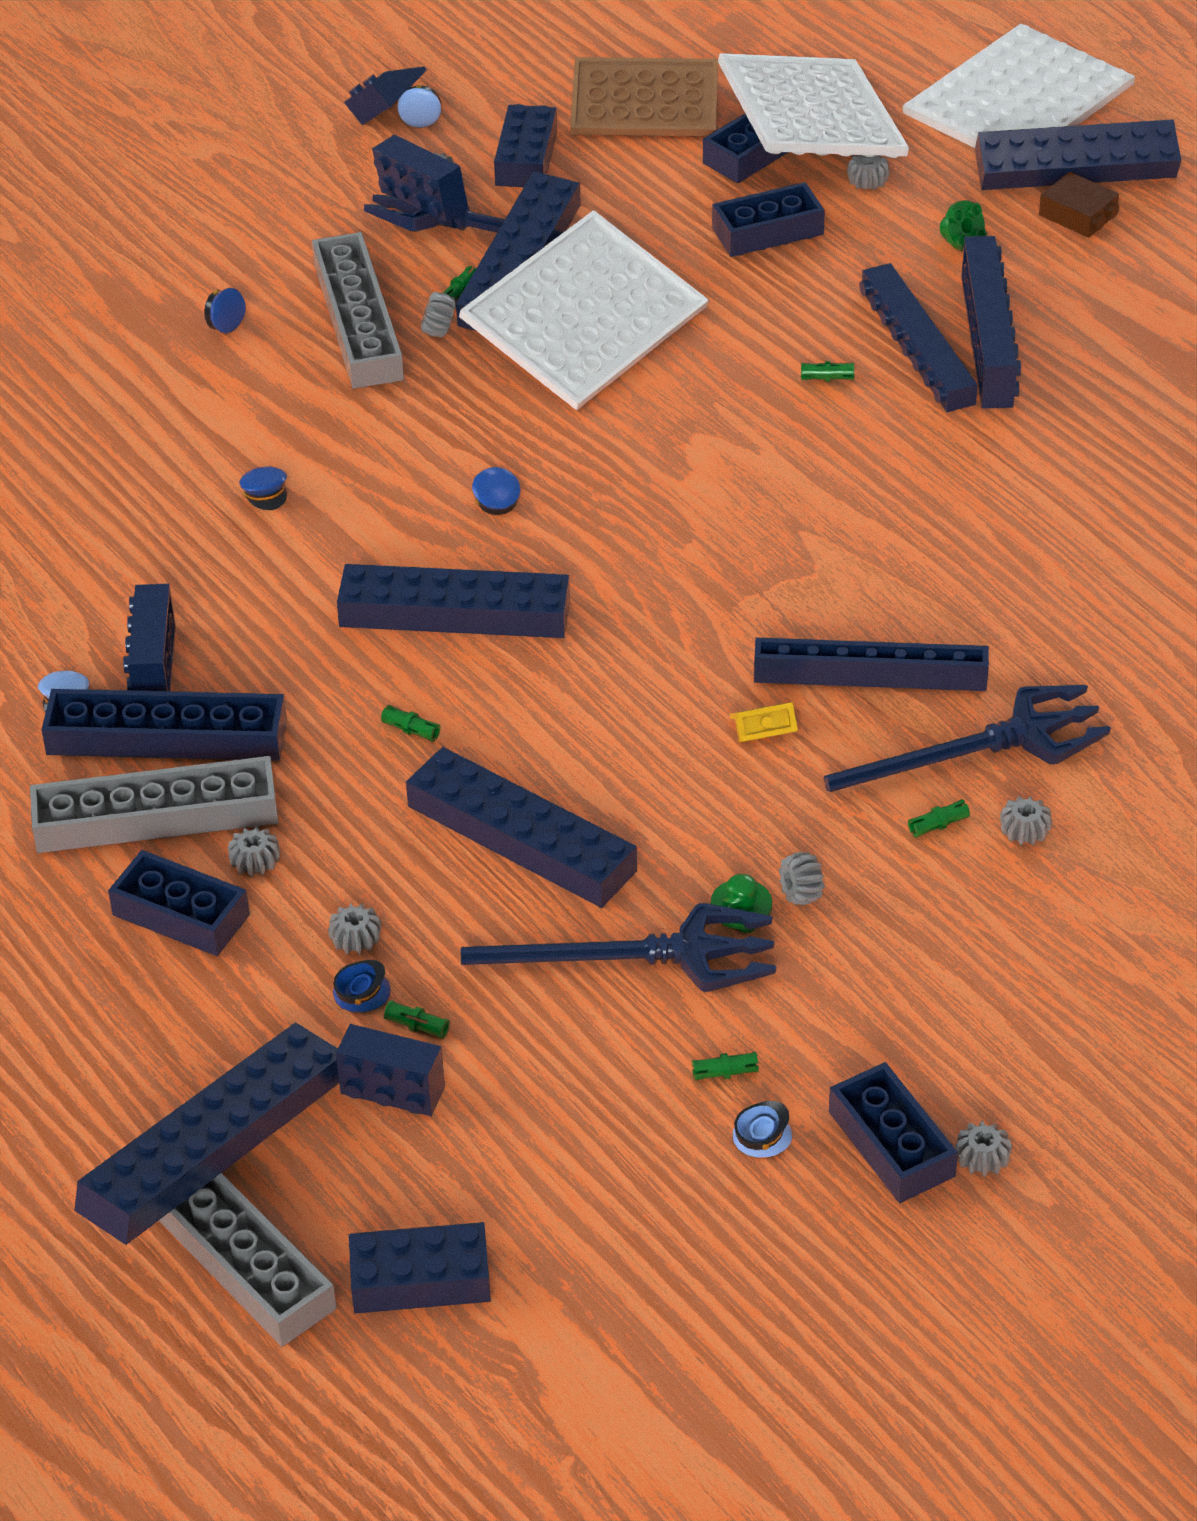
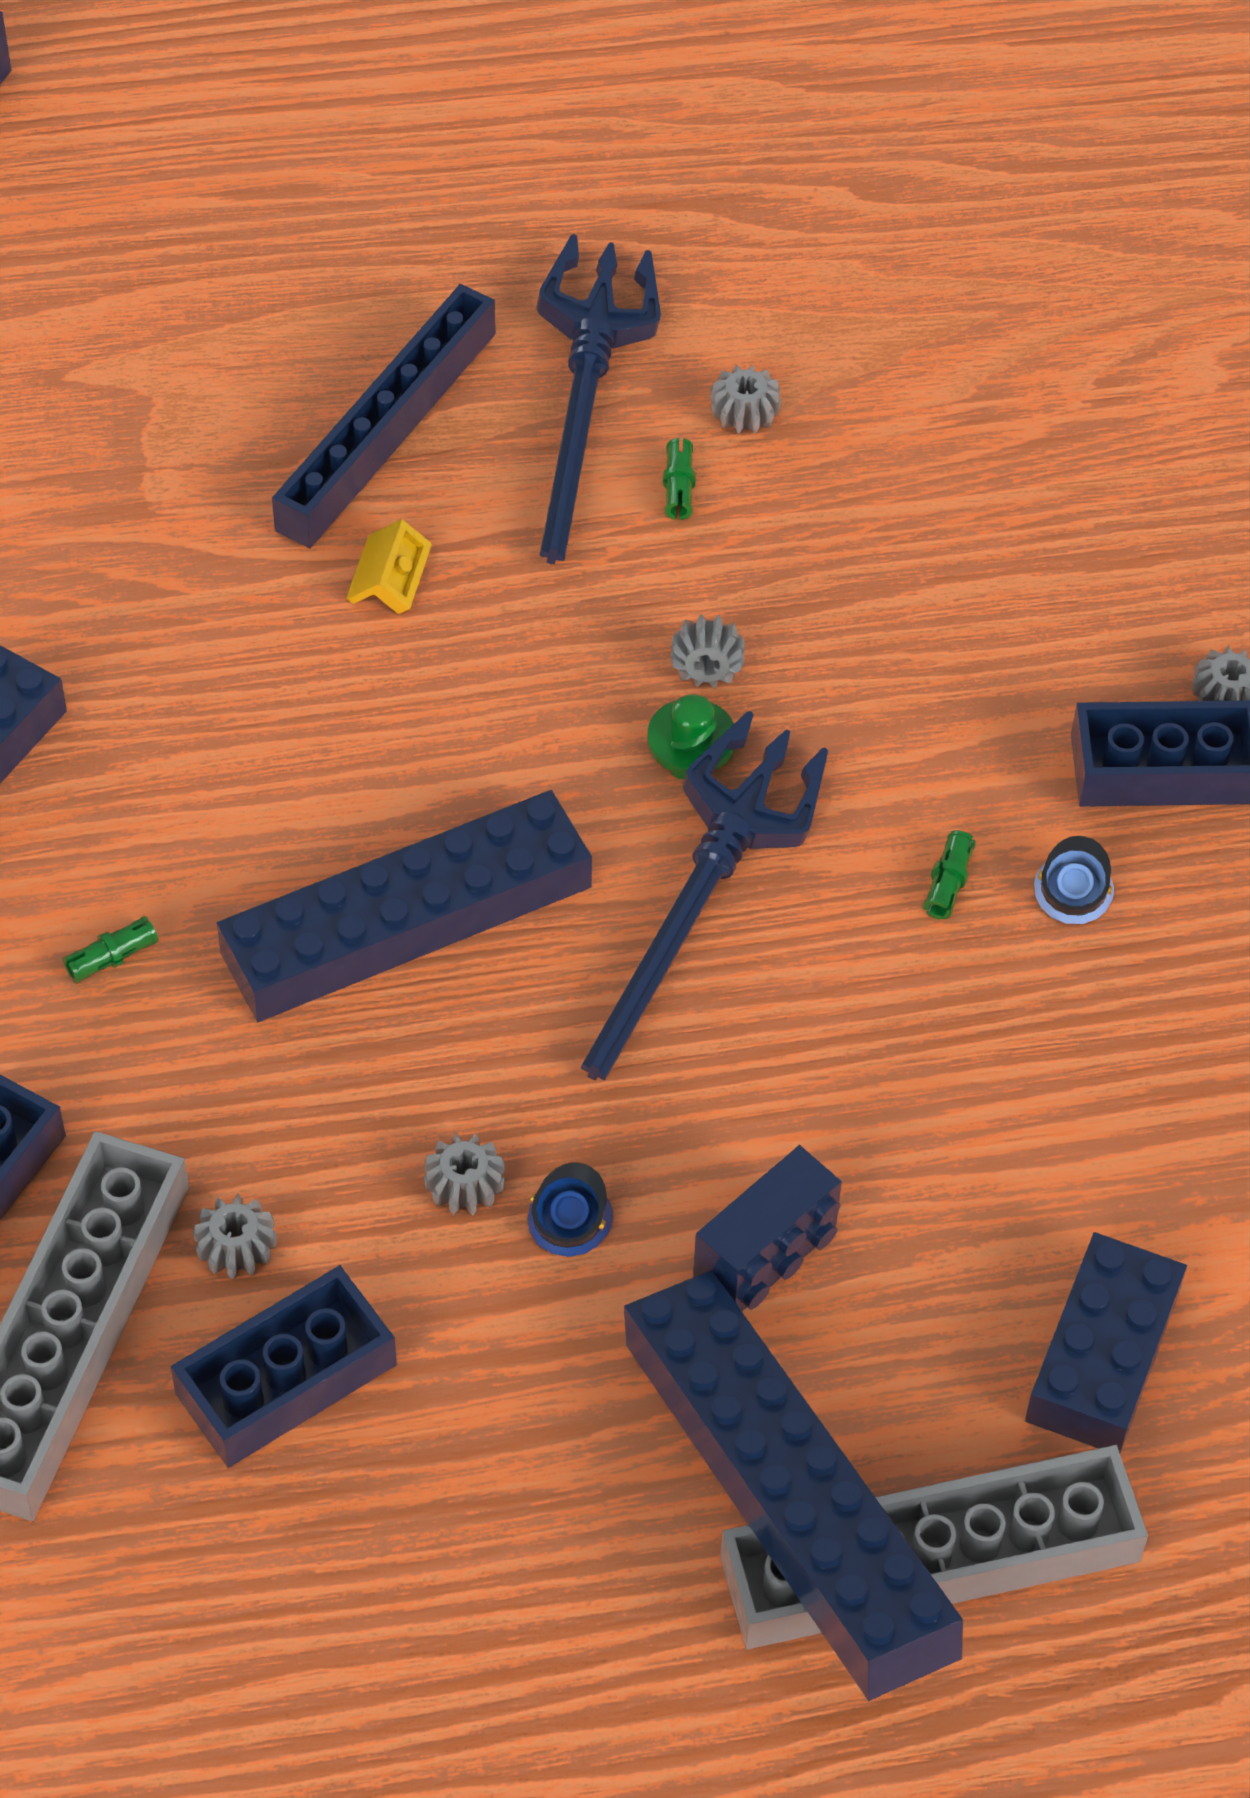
camera: 65 degrees left, 10 degrees up
(435, 1026) = (668, 1172): green pin -> none

